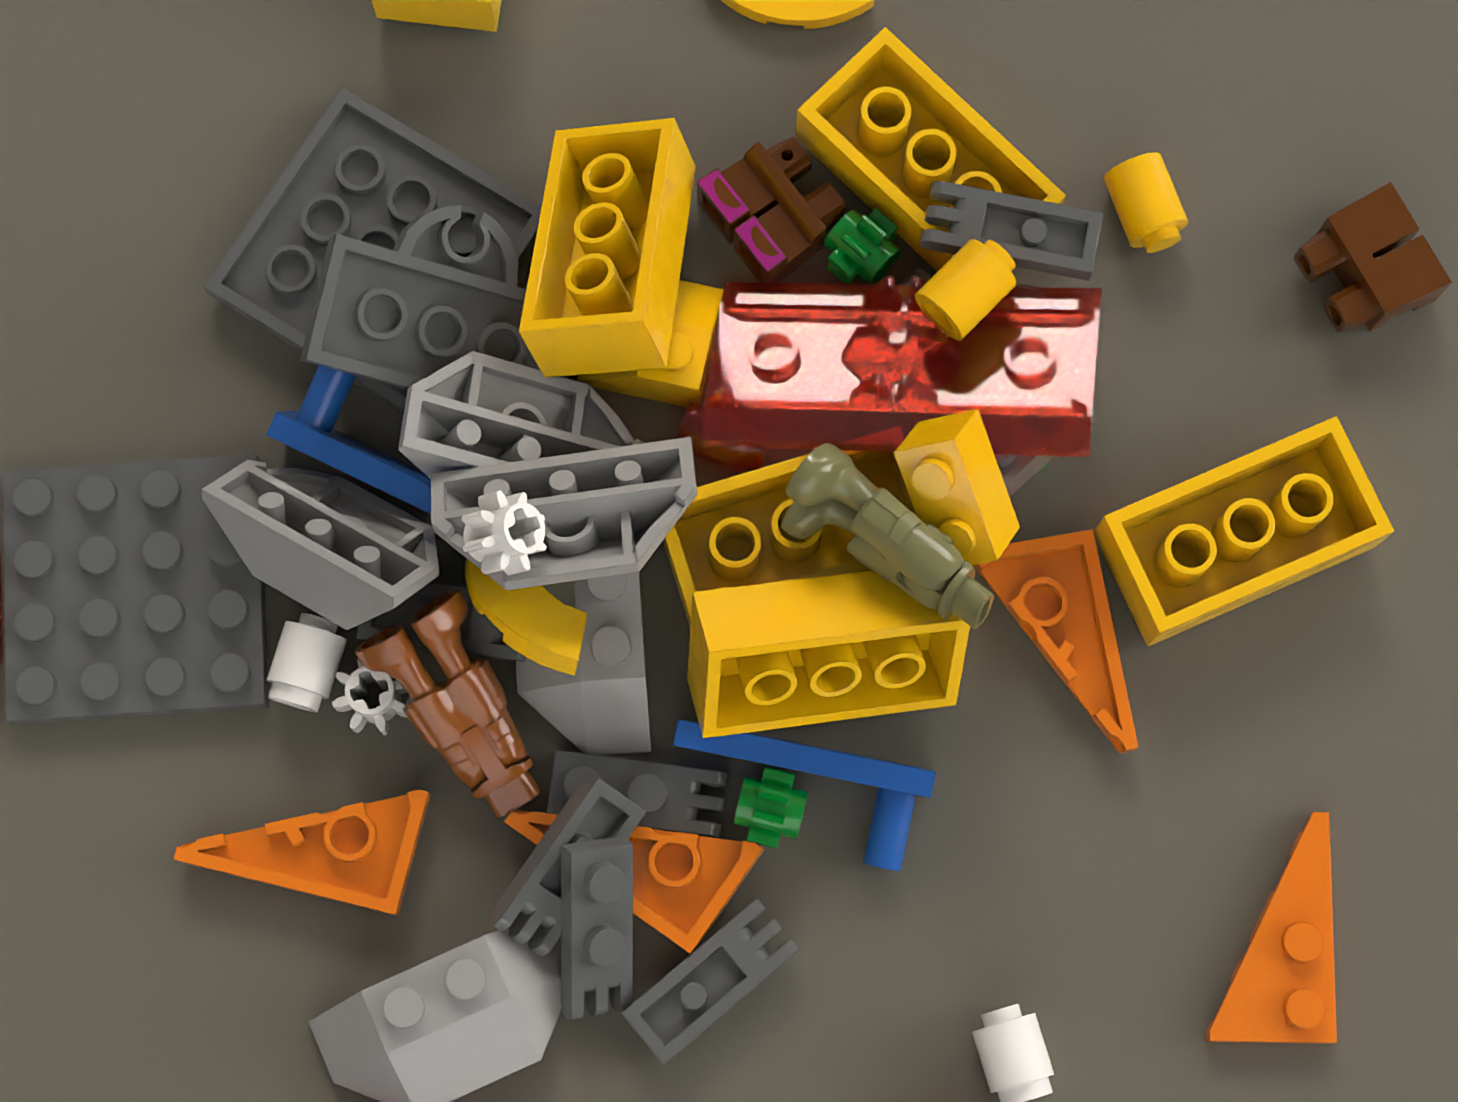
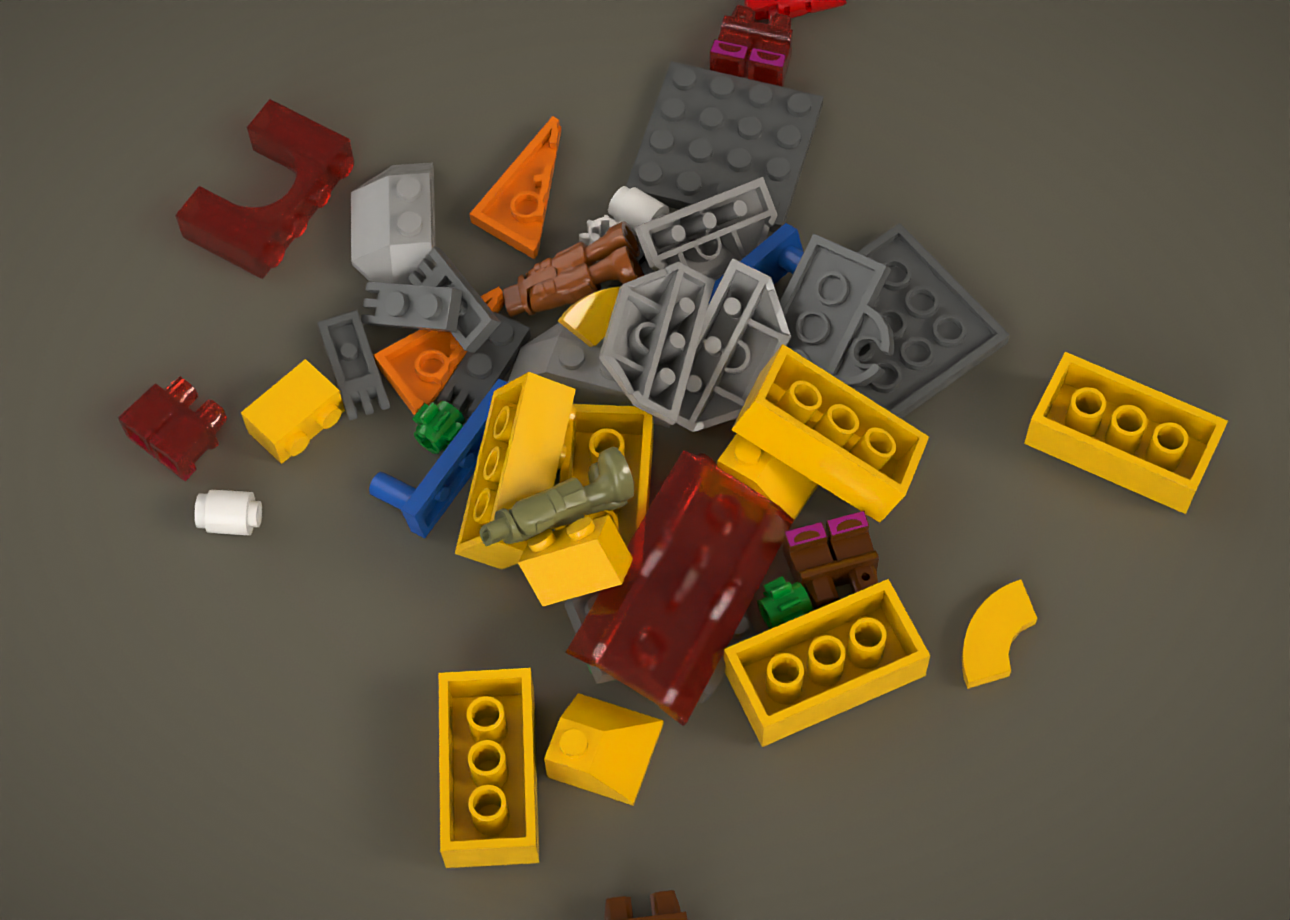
camera: 115 degrees right, 15 degrees down
(504, 533) = (646, 293): white gear -> none
(823, 1032) = (293, 411): none -> yellow brick
(967, 287) = (710, 616): yellow brick -> none
(1032, 231) = (744, 674): dark grey hinge -> none
(1063, 607) = (477, 643): orange wing -> none
(1146, 202) = (748, 804): yellow brick -> none
(1148, 416) = (602, 748): none -> yellow slope
(1288, 972) = (200, 697): orange wing -> none

